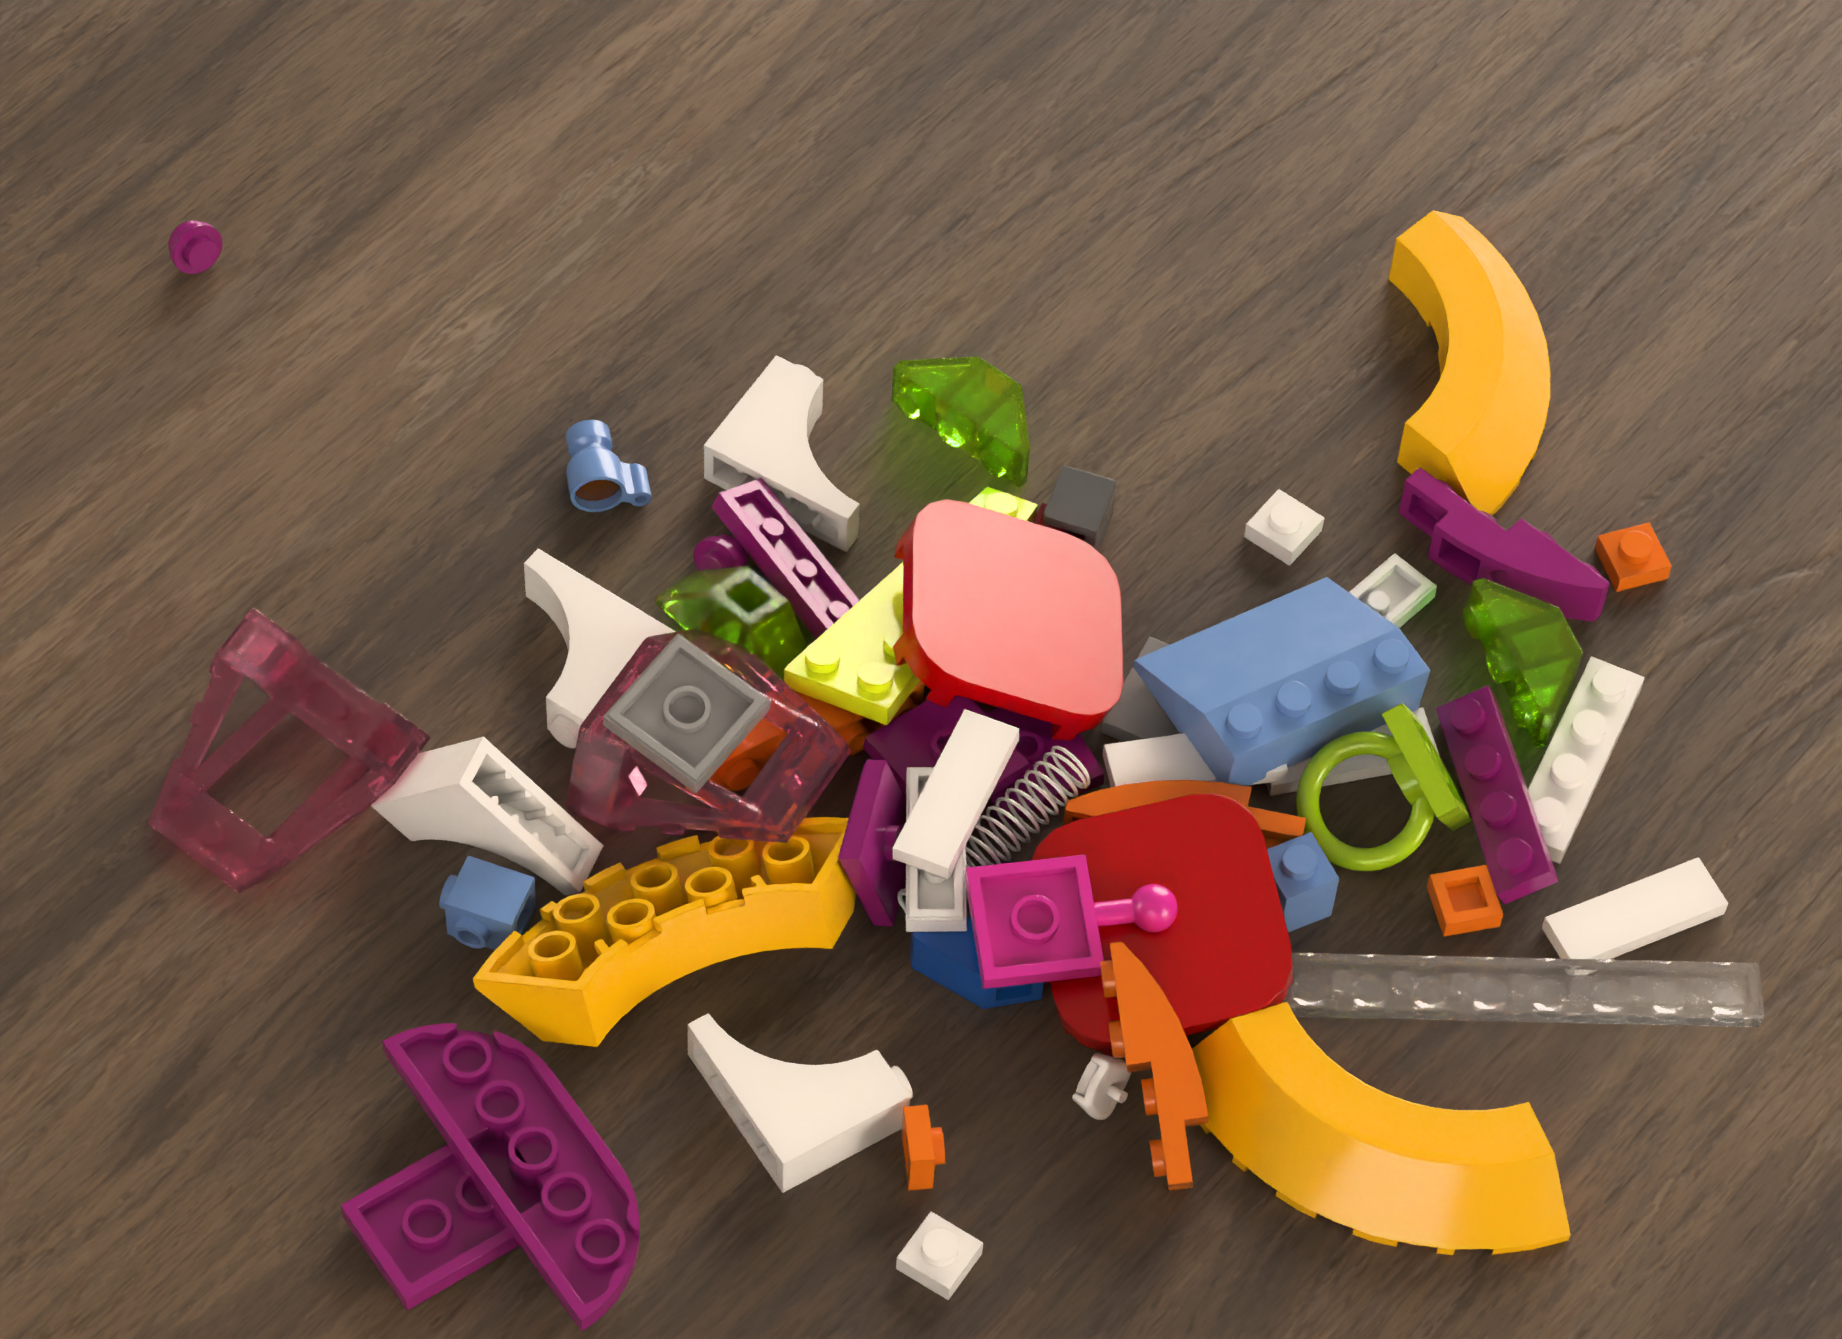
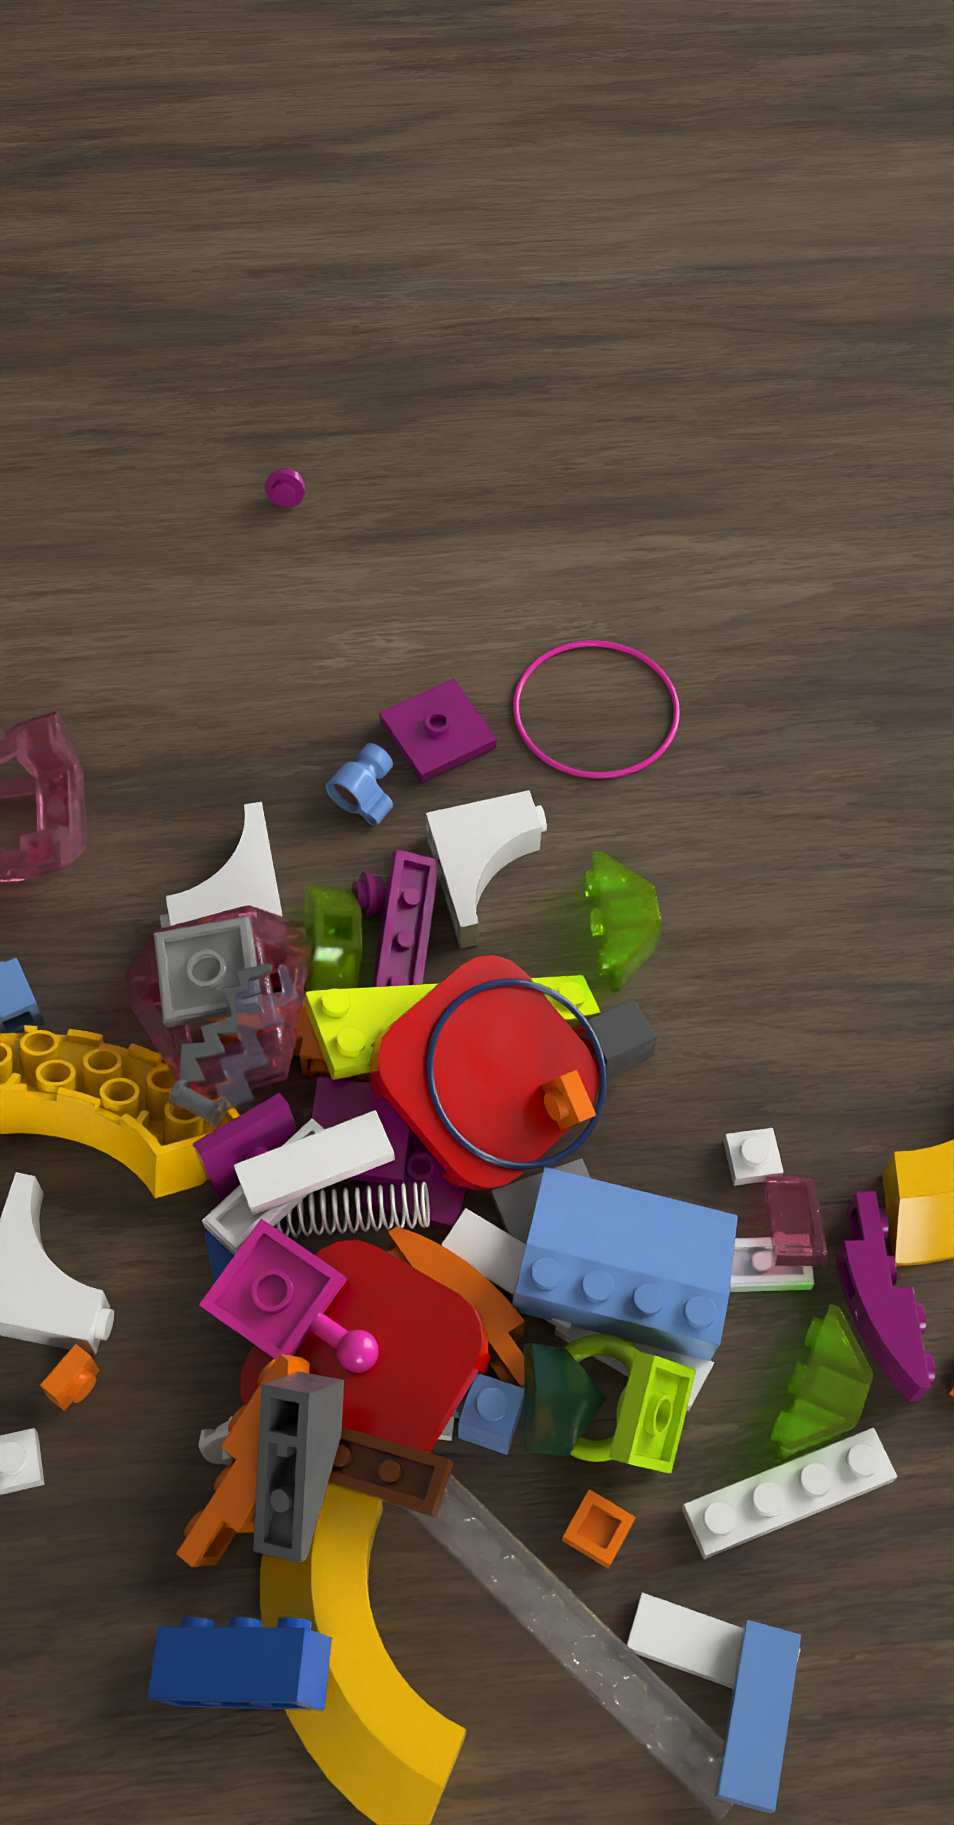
camera: 45 degrees right, 5 degrees up
(487, 802) = (62, 950): white arch -> none
(611, 372) = (437, 730): none -> magenta plate
(728, 325) = (596, 775): none -> dark pink piece
(780, 725) = (246, 1026): none -> piece
(993, 652) = (439, 1109): none -> dark blue piece
(1107, 582) = (567, 1100): none -> orange plate
(1212, 1014) = (295, 1460): none -> dark grey slope
(1259, 977) = (390, 1472): none -> reddish brown plate
(1311, 1210) = (241, 1665): none -> blue brick
(1345, 820) = (557, 1400): none -> clear green slope
(1373, 547) = (795, 1221): none -> clear pink tile
(1496, 795) = (696, 1473): magenta plate -> none
(1720, 920) = (758, 1717): none -> medium blue tile

